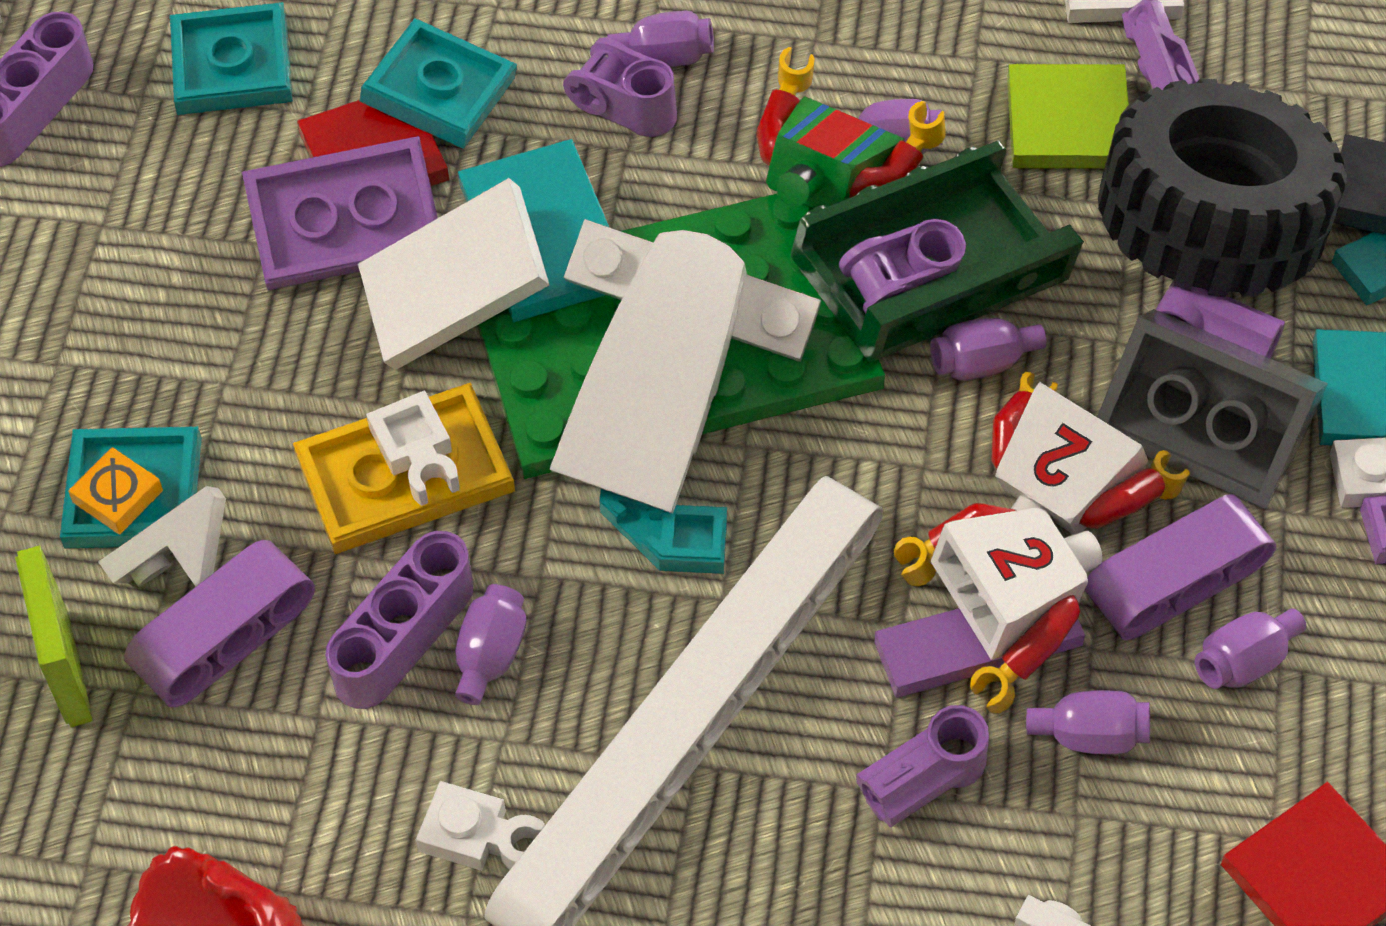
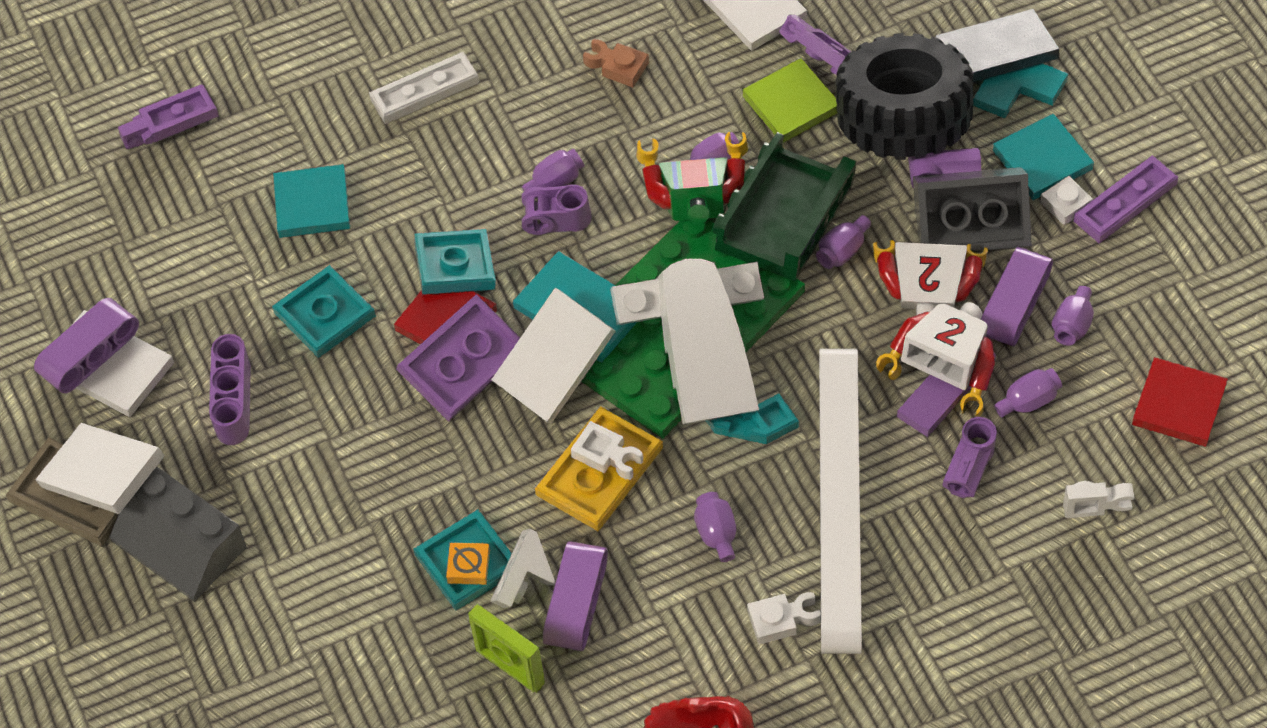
camera: 30 degrees left, 0 degrees up
(393, 646) = (669, 555): medium lavender beam -> none
(898, 260) = (782, 220): medium lavender piece -> none

